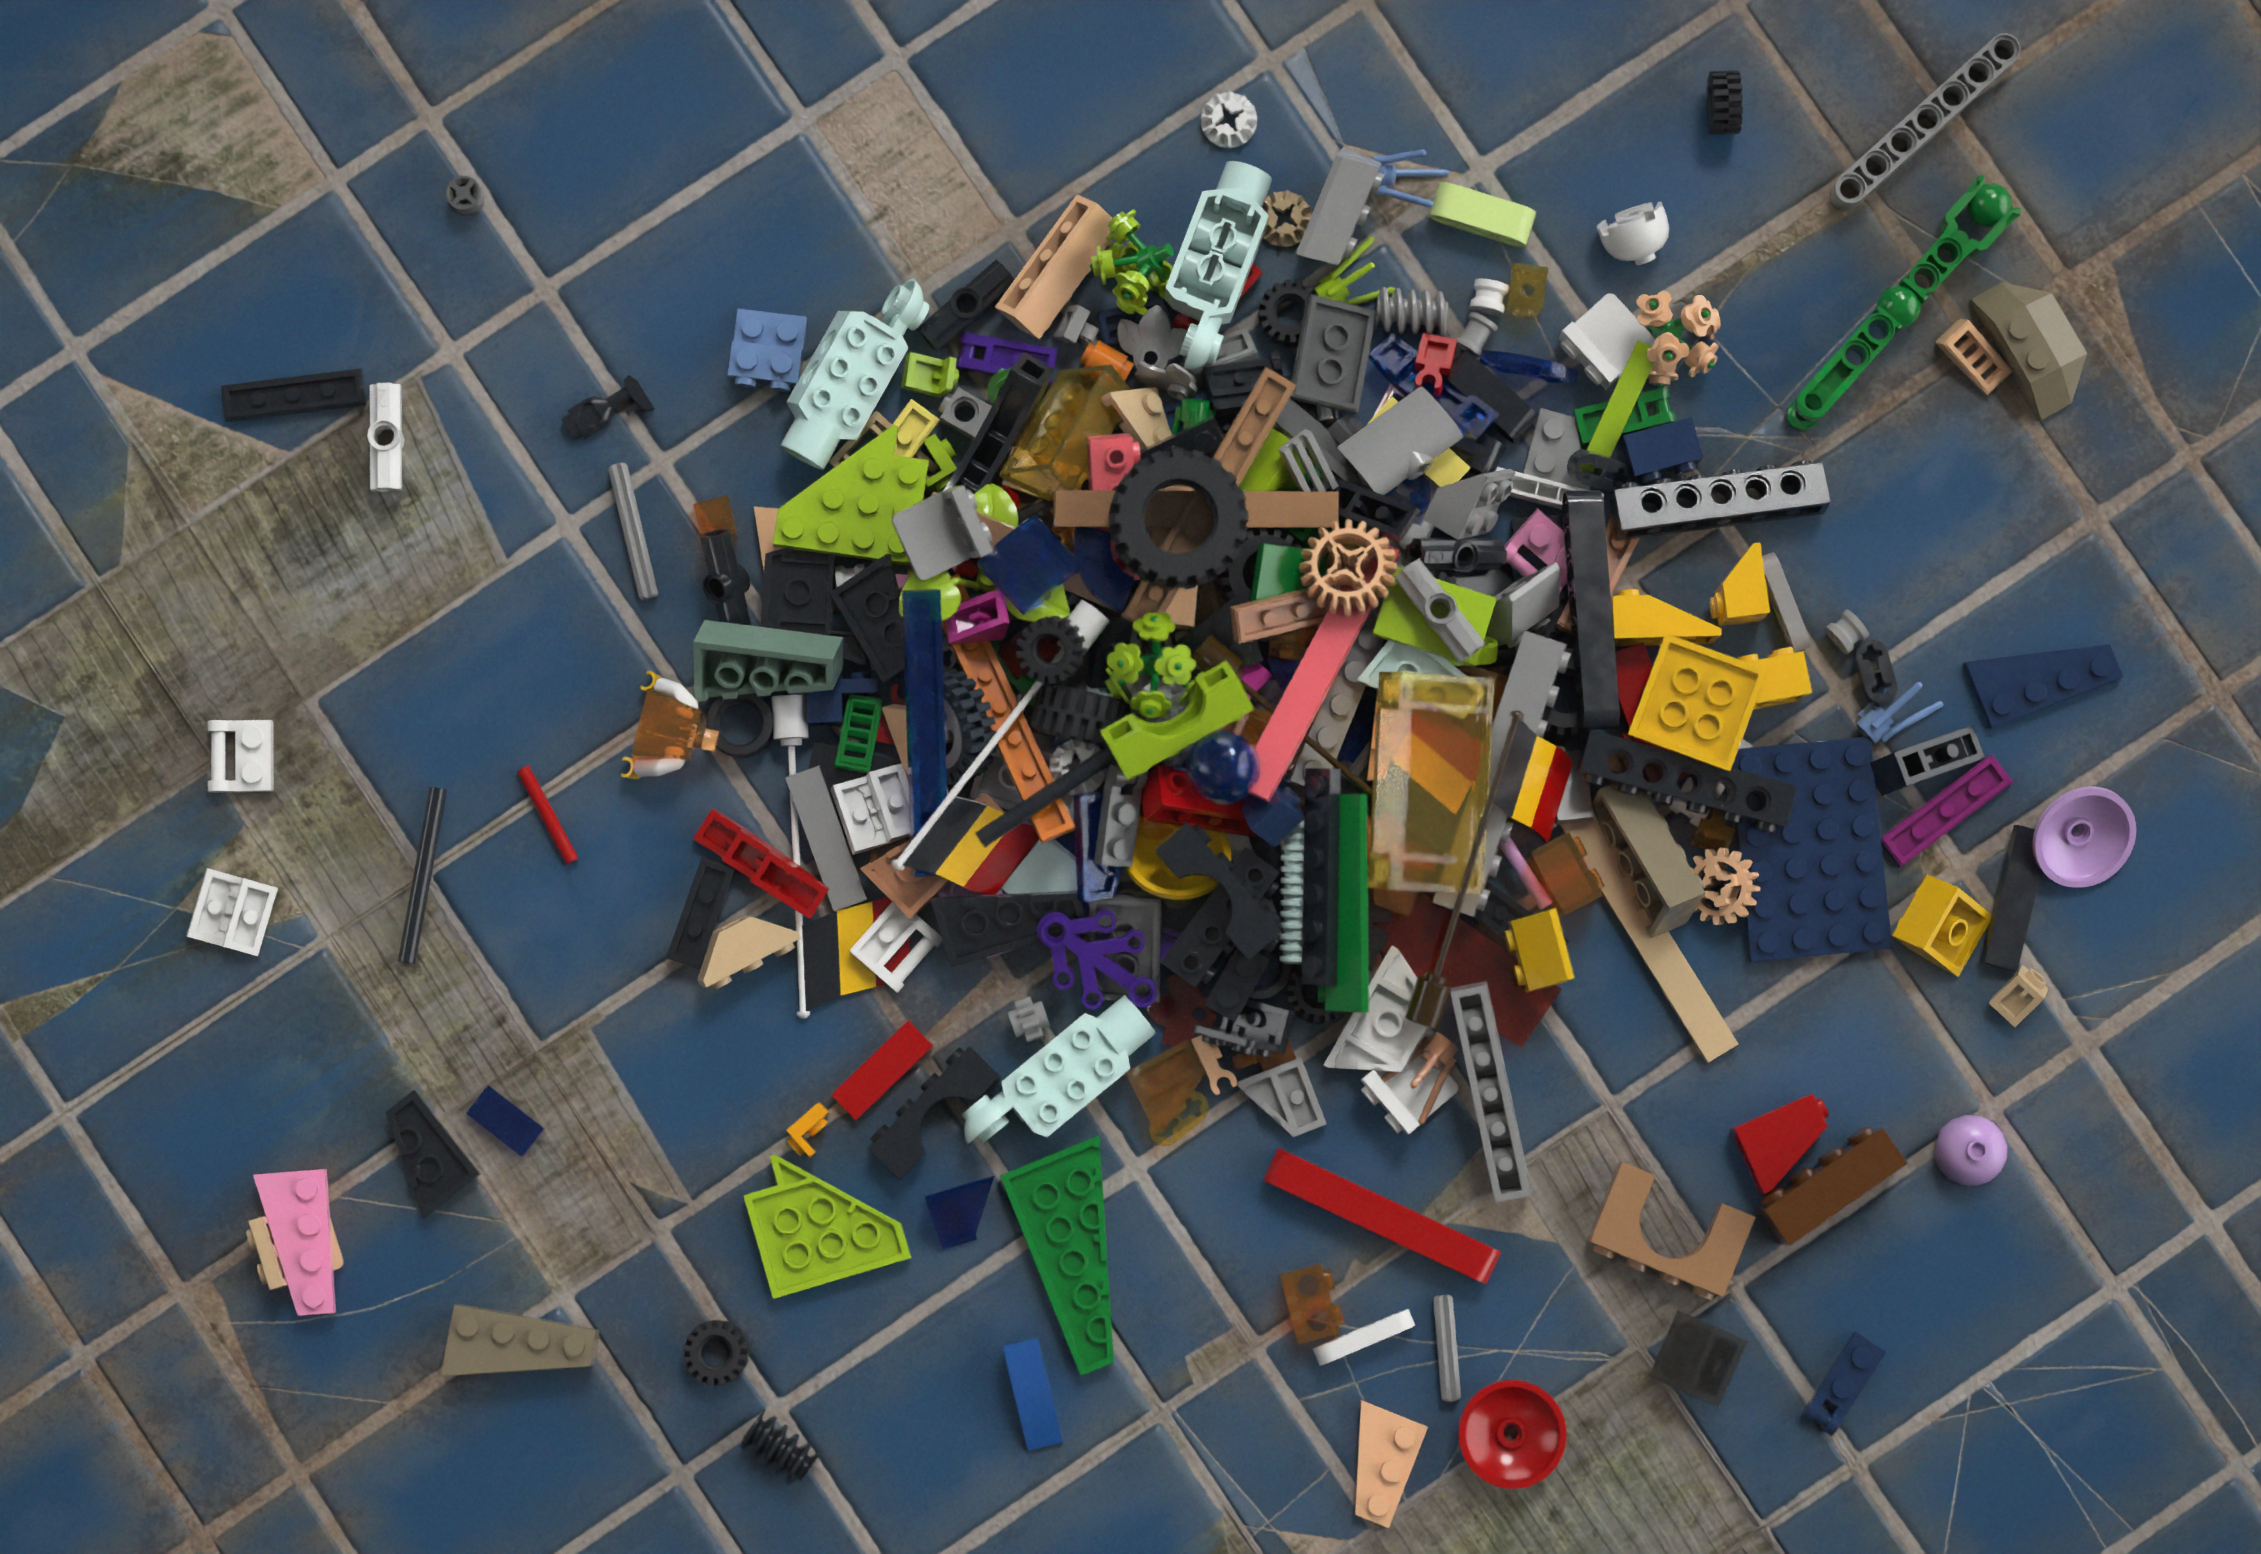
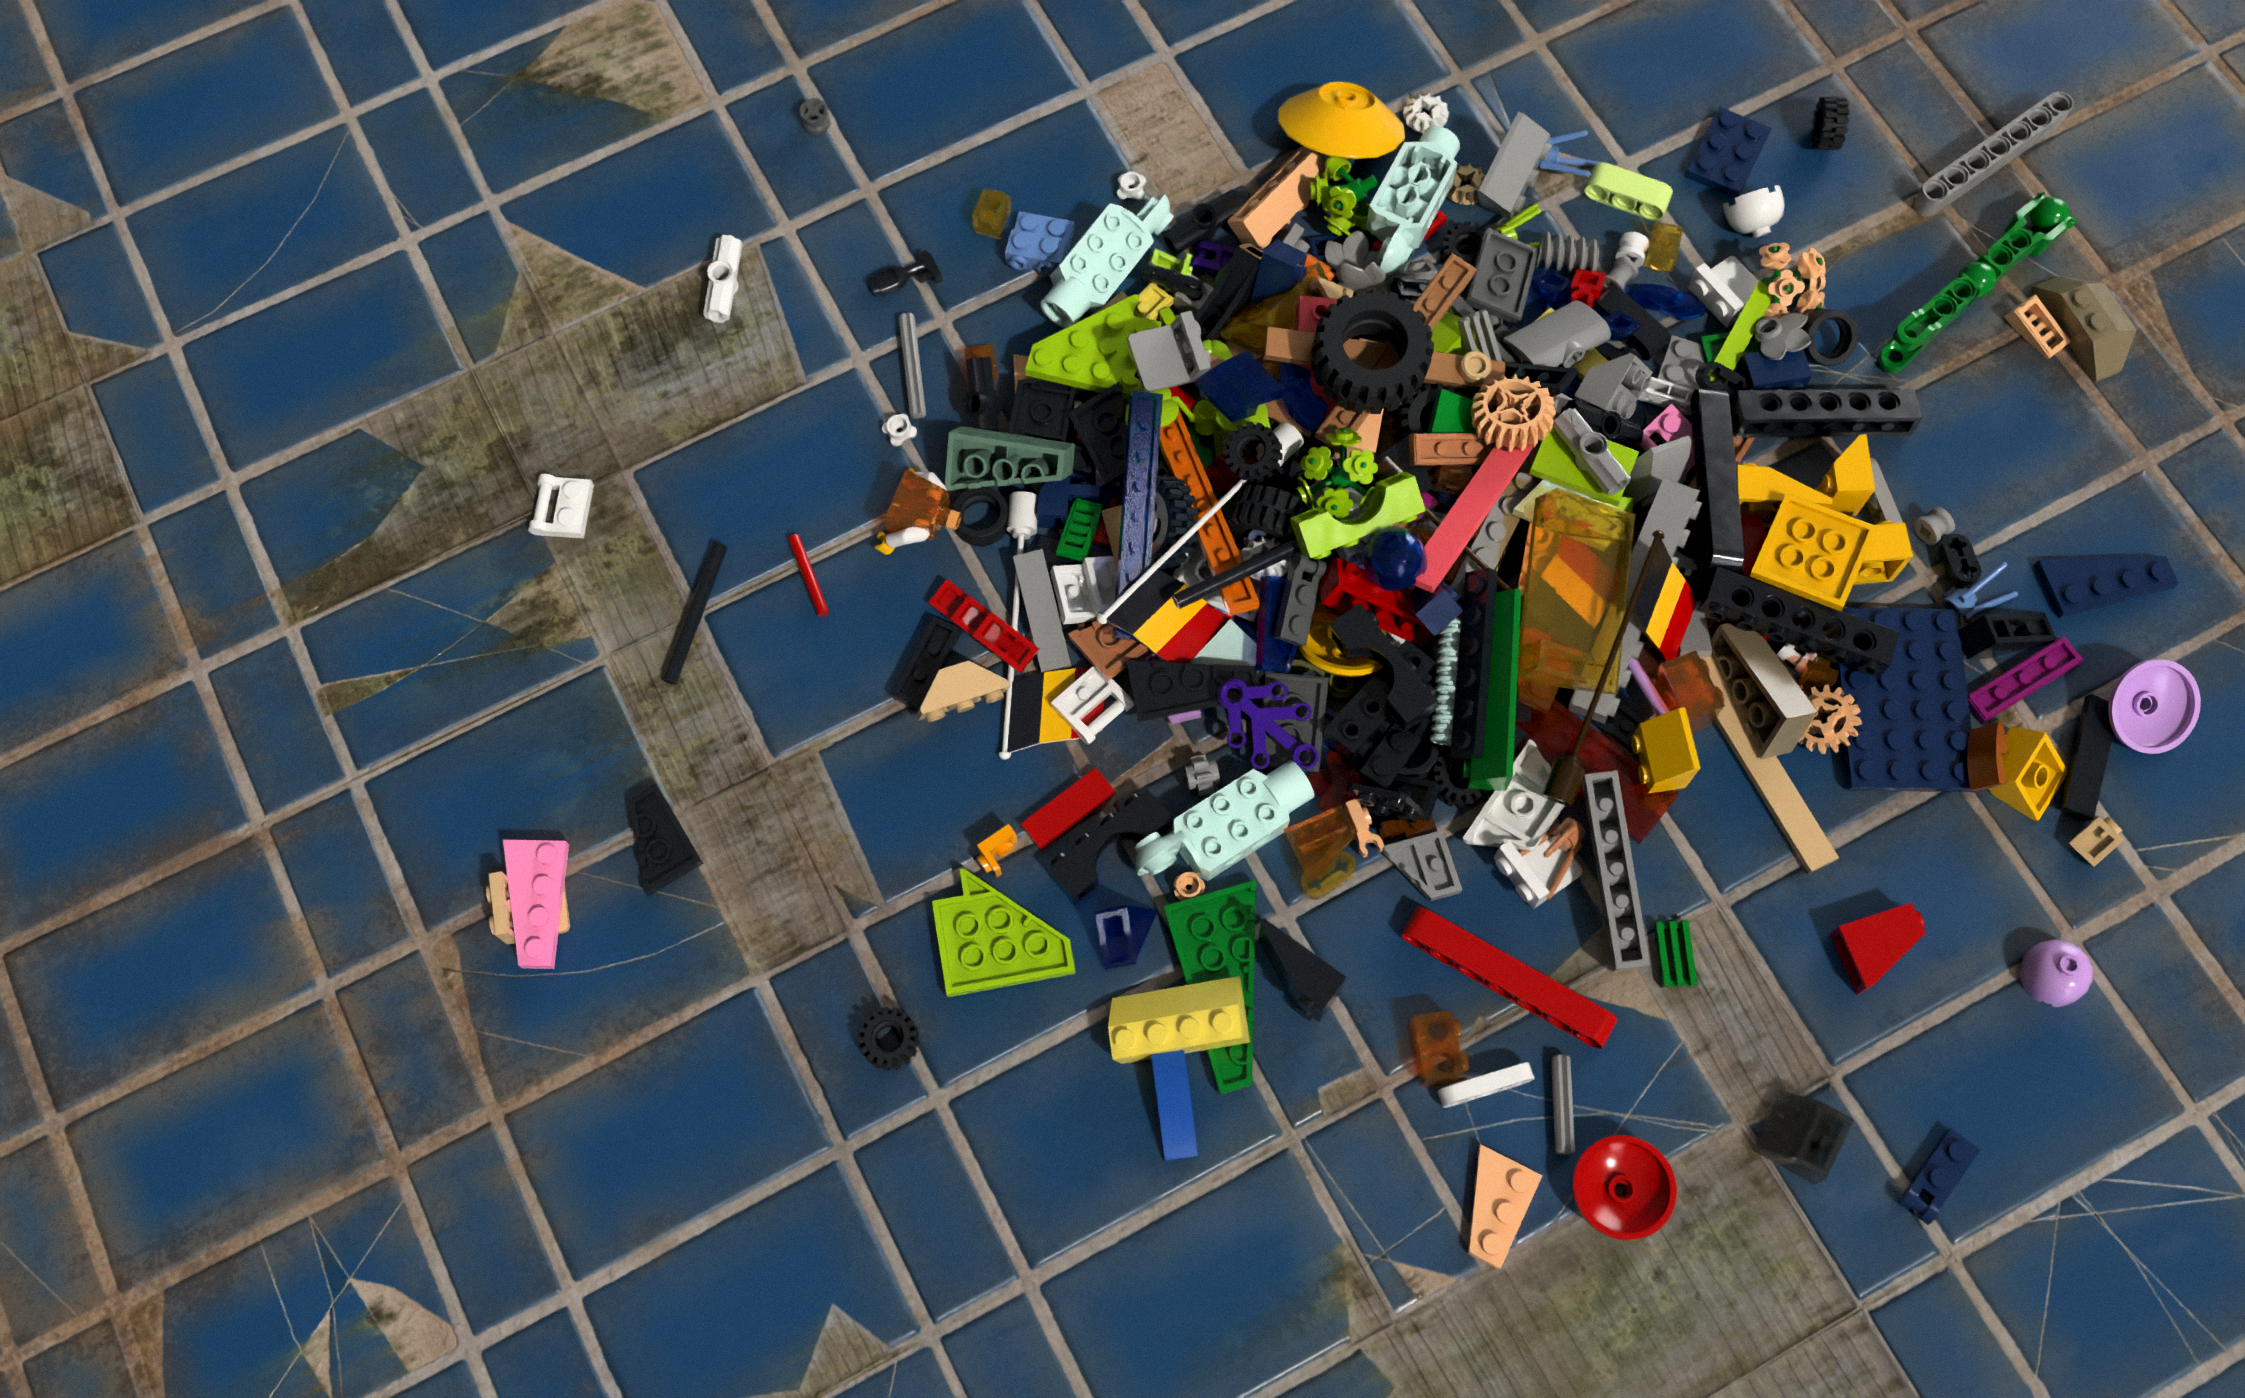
camera: 10 degrees right, 15 degrees down
(232, 912) = (529, 627): white slope -> none
(294, 395) = (656, 246): black tile -> none
(505, 1120) = (732, 820): clear blue tile -> none
(507, 1342) = (702, 1009): dark tan wedge -> none
(619, 616) = (896, 422): none -> white plate
(700, 301) = (991, 213): none -> clear yellow brick
(779, 1448) = (933, 1131): black piece -> none
(869, 250) = (1131, 179): none -> white plate
(936, 401) = (1173, 280): none -> black pin
(979, 619) = (1192, 434): dark pink slope -> none
(1025, 1138) = (1185, 879): none -> light nougat plate
(1027, 1303) = (1178, 1019): none -> light yellow slope
(1064, 392) = (1278, 271): none -> dark blue slope
(1124, 160) = (1341, 122): none -> yellow dish
(1162, 1245) = (1305, 976): none -> black slope
(1302, 506) = (1474, 367): none -> tan tile
(1571, 1137) = (1673, 926): none -> green tile
(1604, 143) = (1728, 152): none -> dark blue plate
(1619, 1232) = (1729, 1015): medium nougat arch -> none
(1670, 412) = (1782, 335): none -> light grey plate
(1737, 417) = (1847, 339): none -> black tyre
(1830, 1186) = (1928, 984): reddish brown brick -> none
(1894, 925) = (1984, 756): none -> dark orange slope

